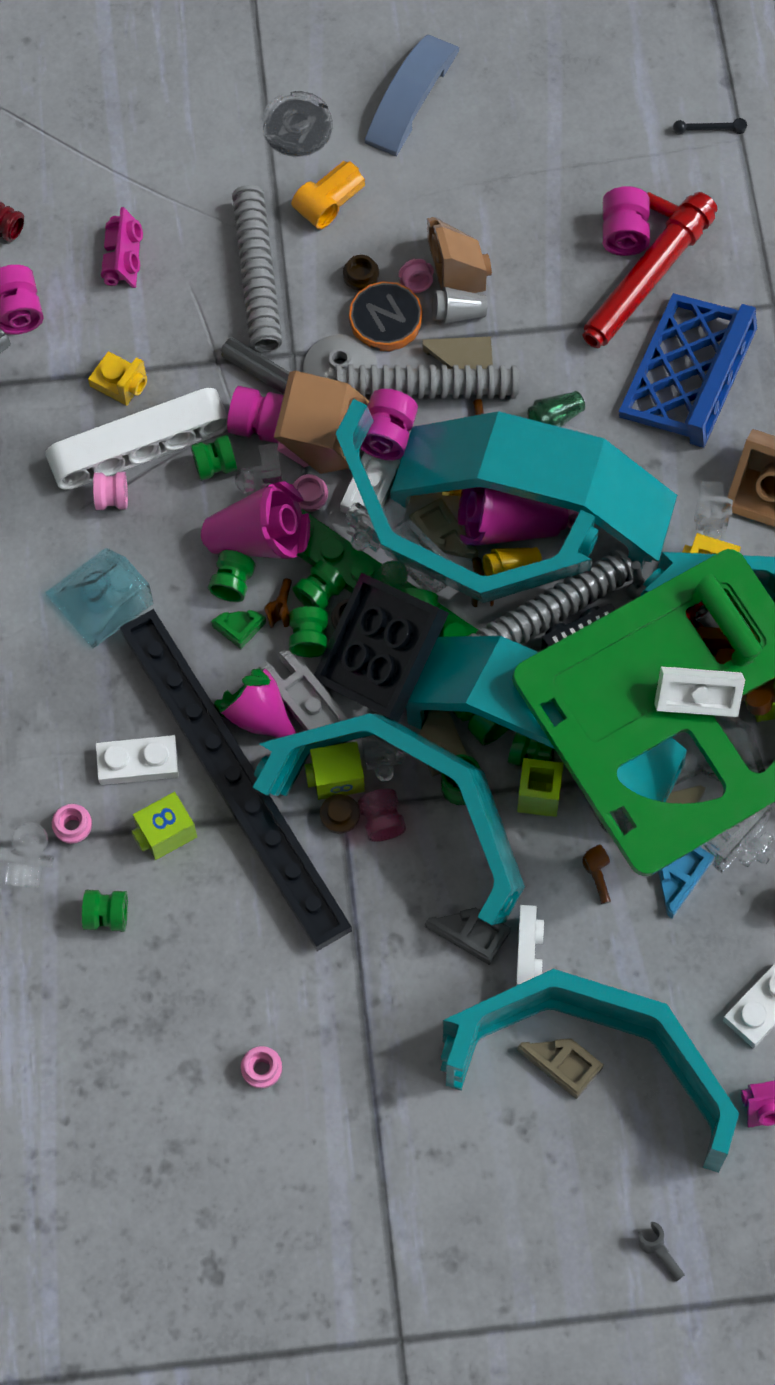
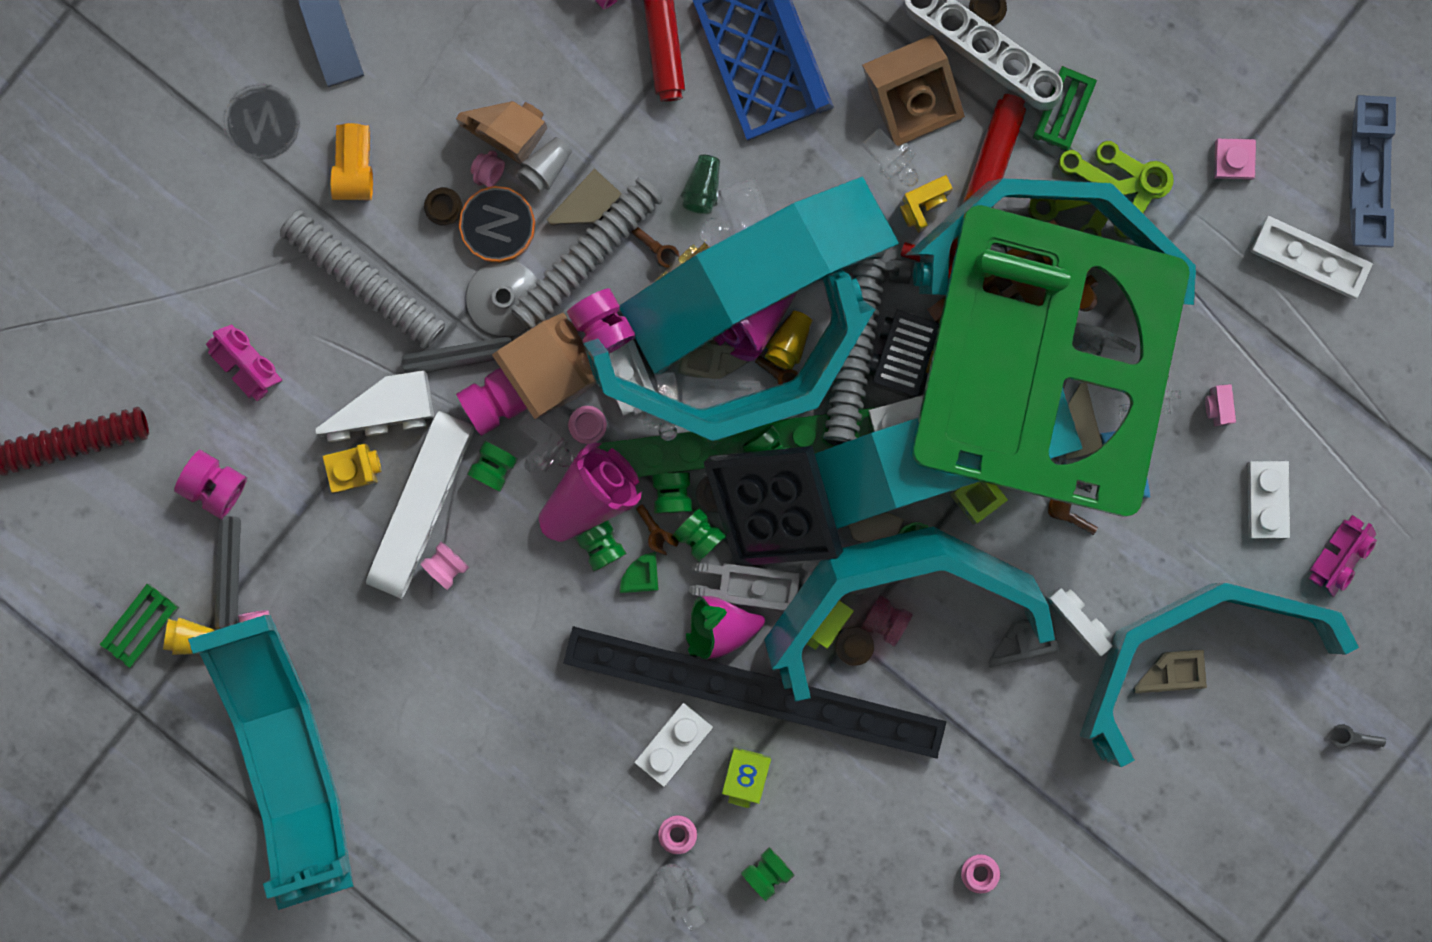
camera: 45 degrees left, 20 degrees up
(101, 596) = (518, 651): clear light blue slope -> none
(182, 353) = (389, 402): none -> white slope
(699, 691) = (1055, 347): white plate -> none

